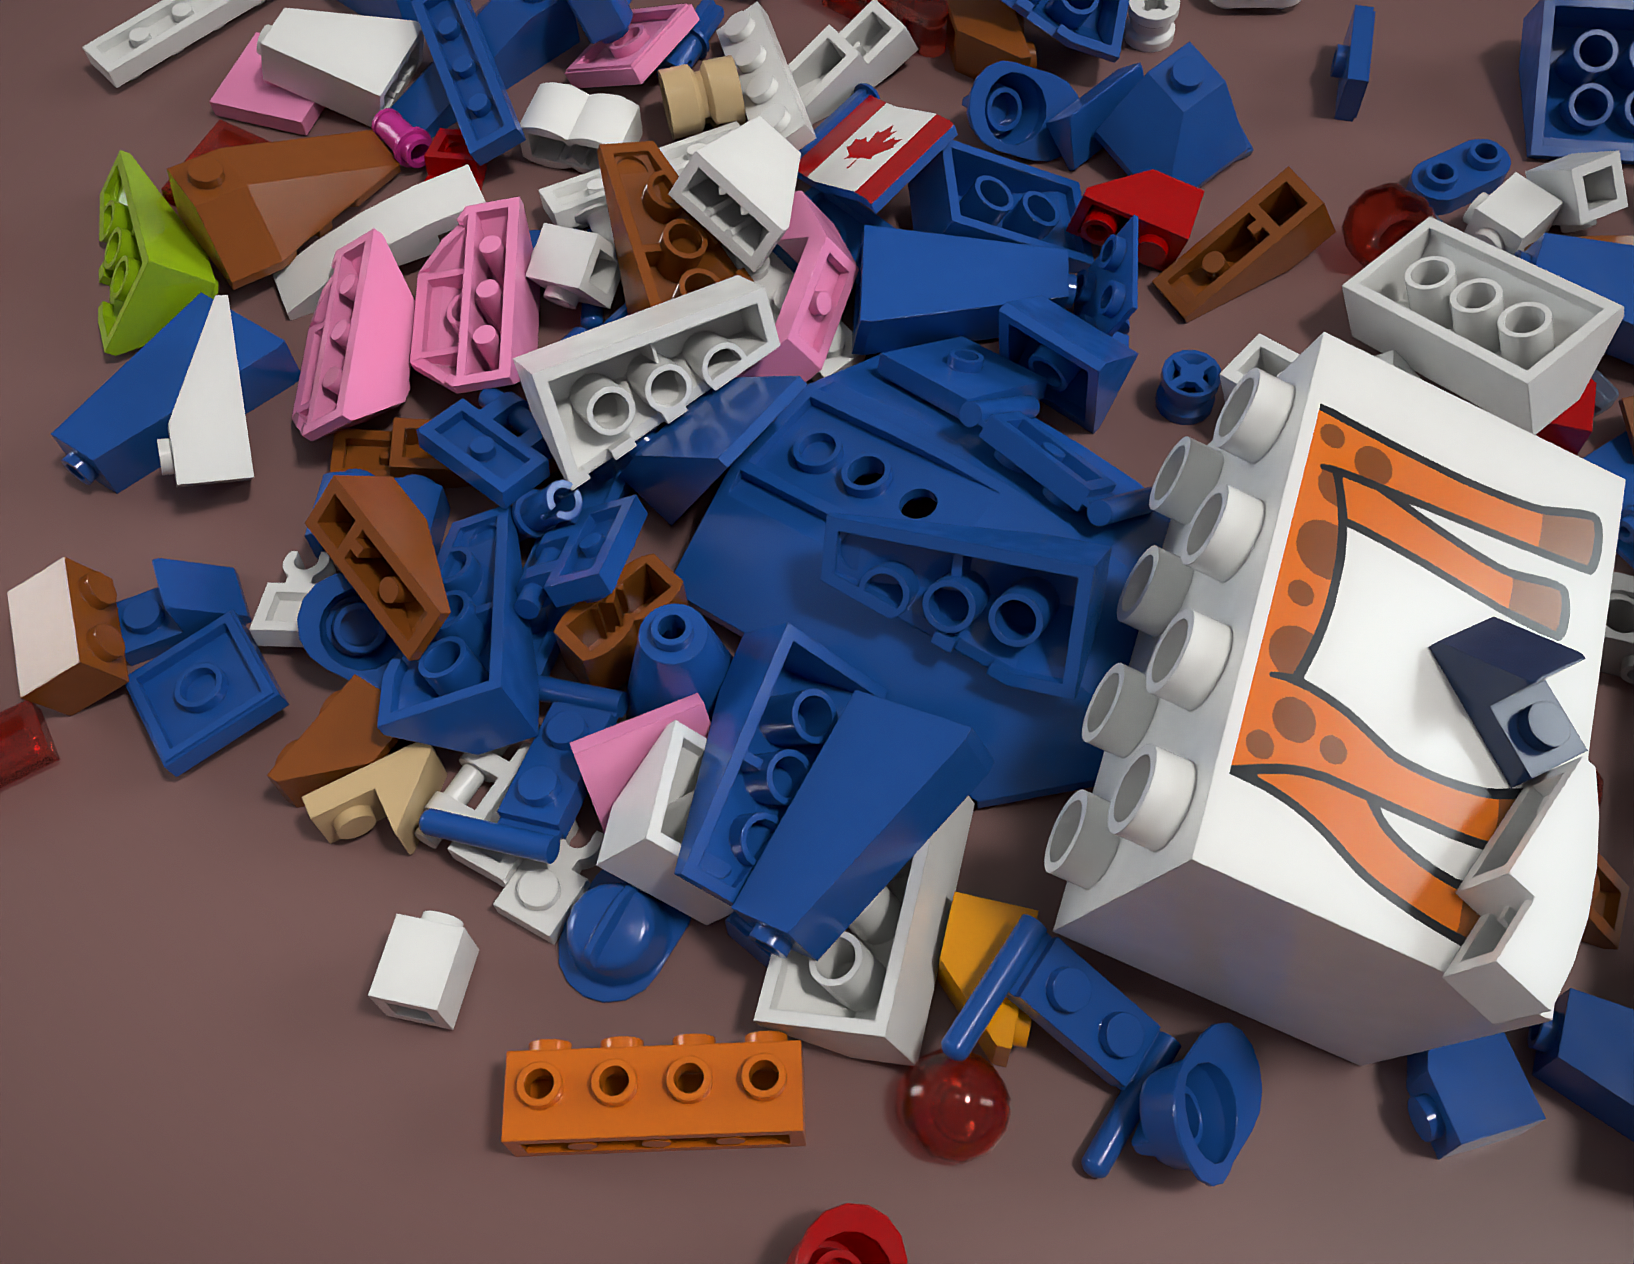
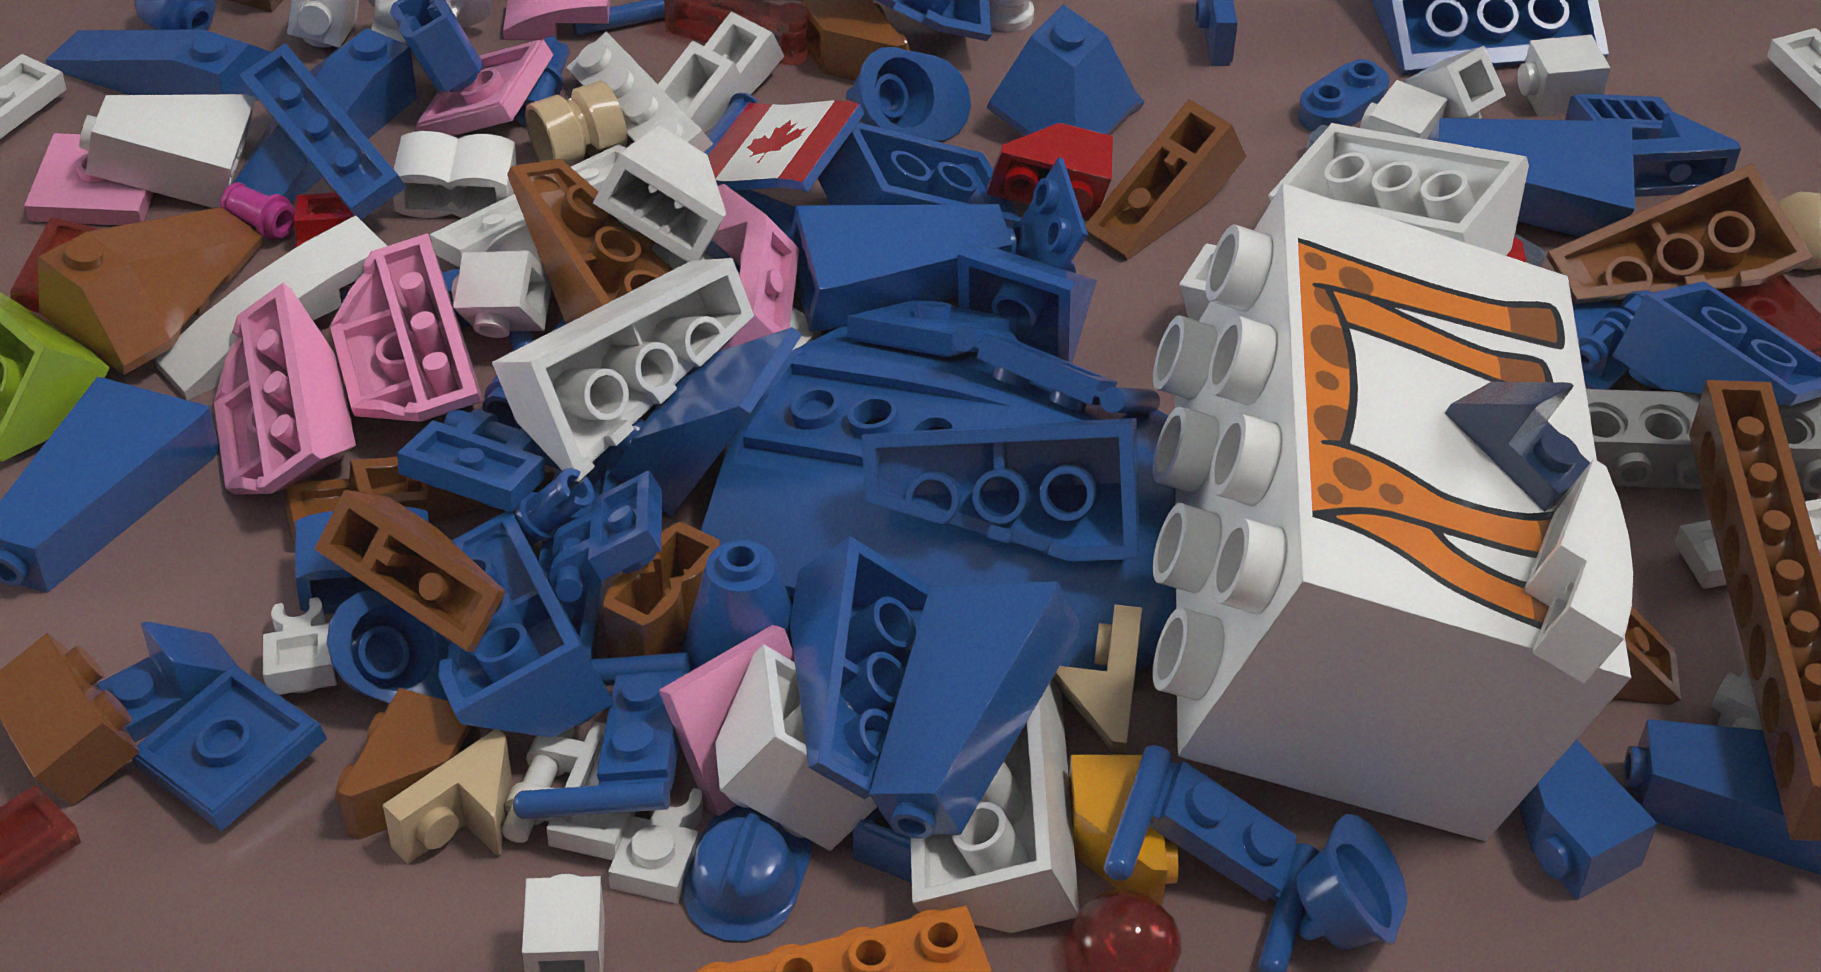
camera: 20 degrees left, 15 degrees down
(209, 420) = (155, 488): white slope -> none
(1013, 829) = (1106, 696): none -> tan slope
(1075, 125) = (969, 96): blue slope -> none
(1182, 375) = (1147, 309): blue wheel -> none
(1381, 219) = (1285, 137): clear red hair -> none

